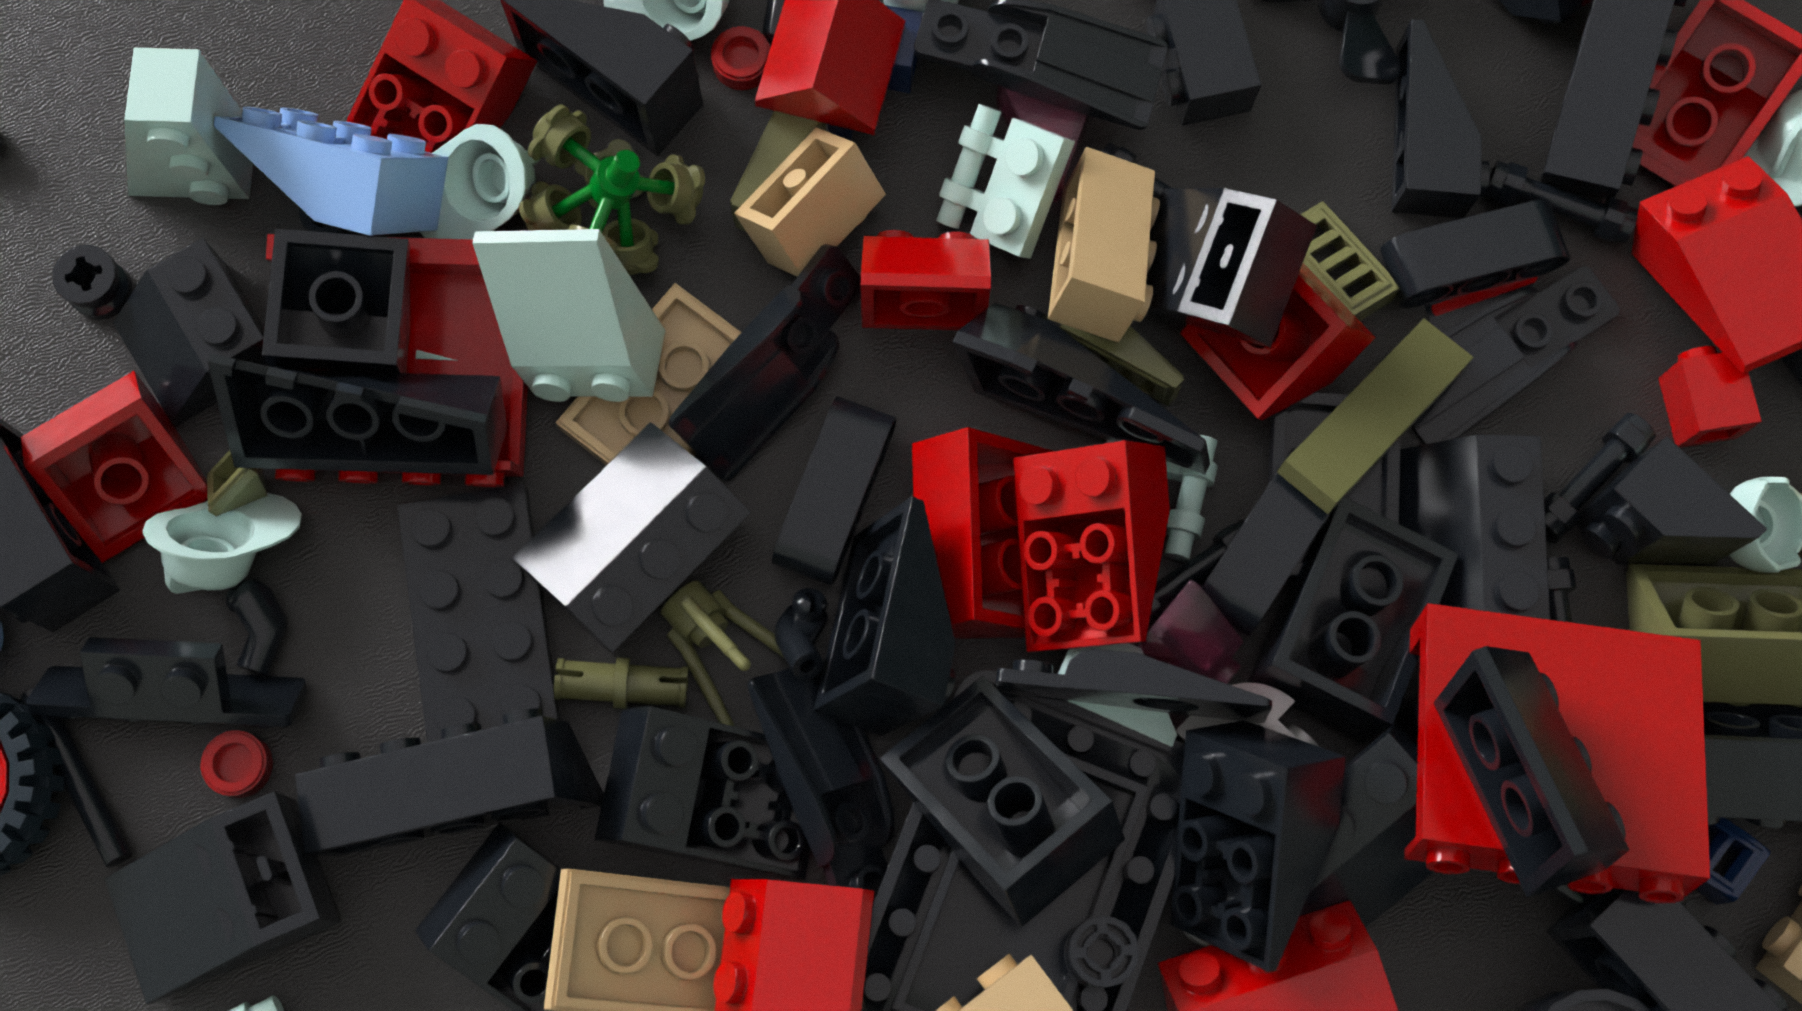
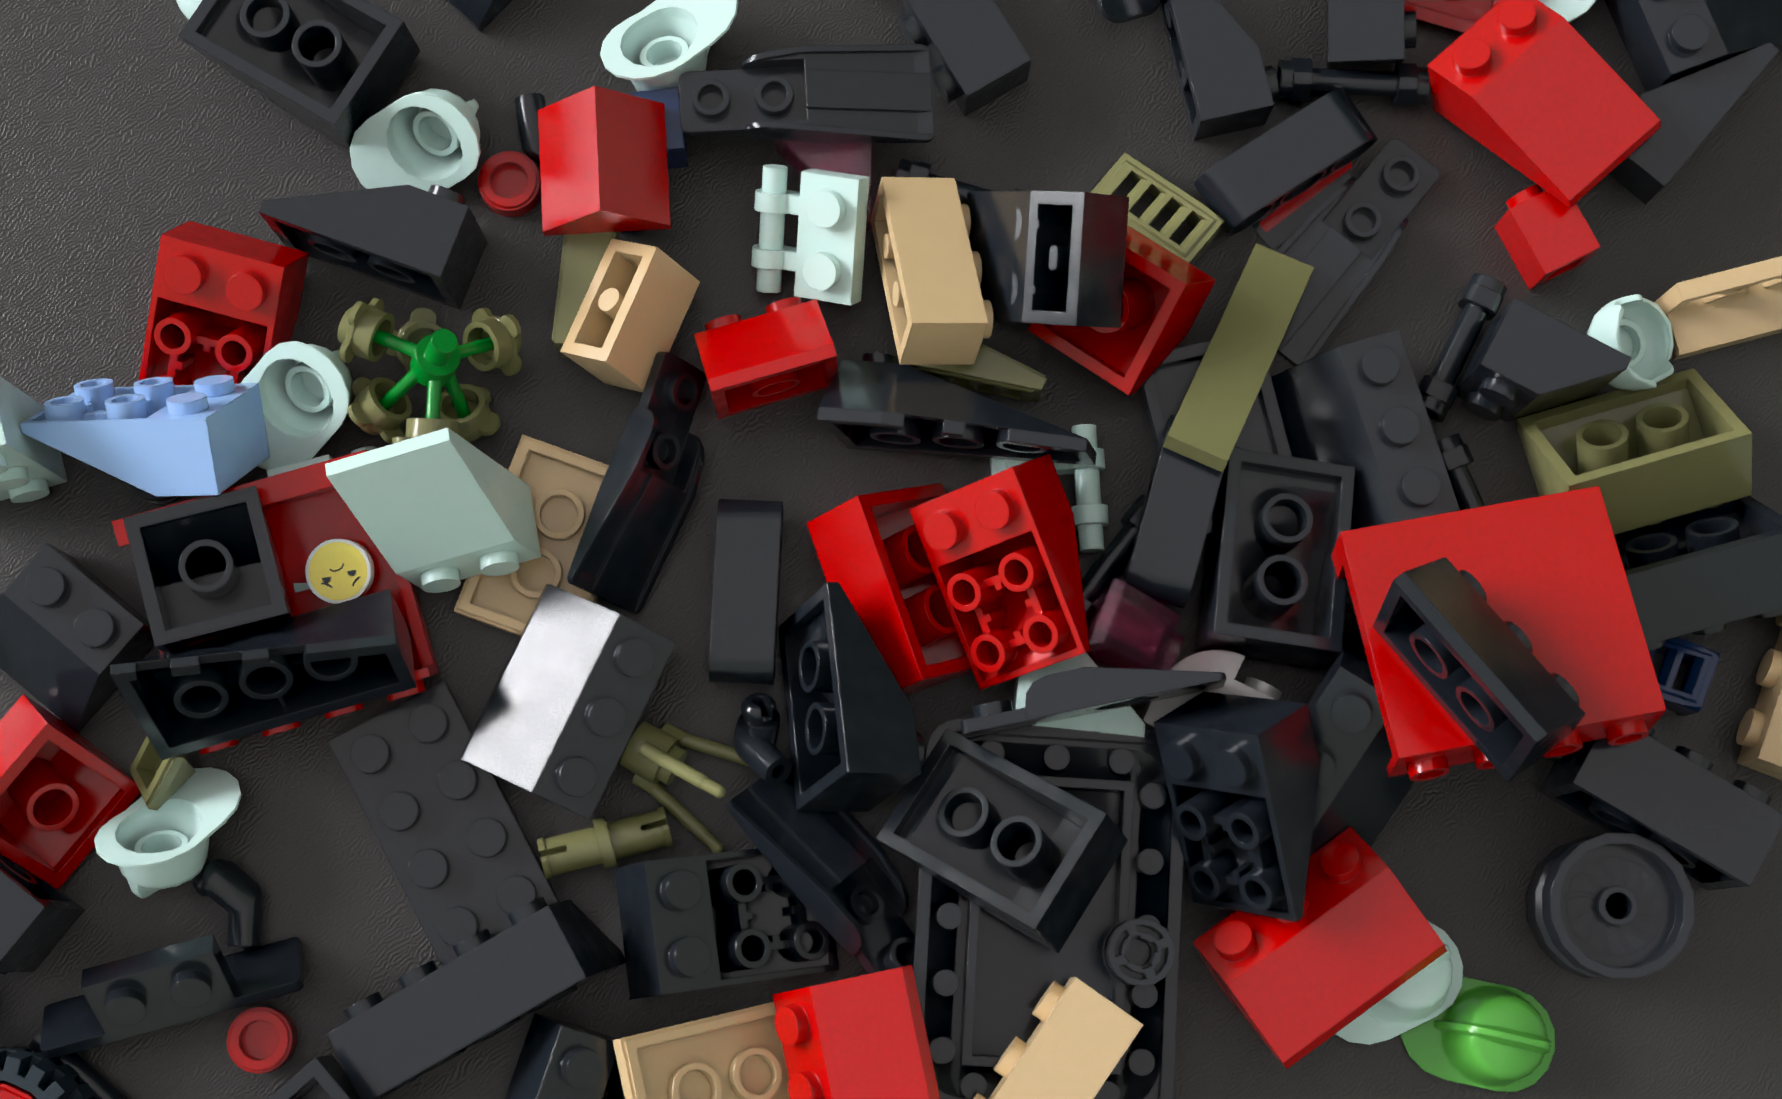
camera: 20 degrees left, 5 degrees up
(461, 347) = (339, 570): none -> light yellow tile

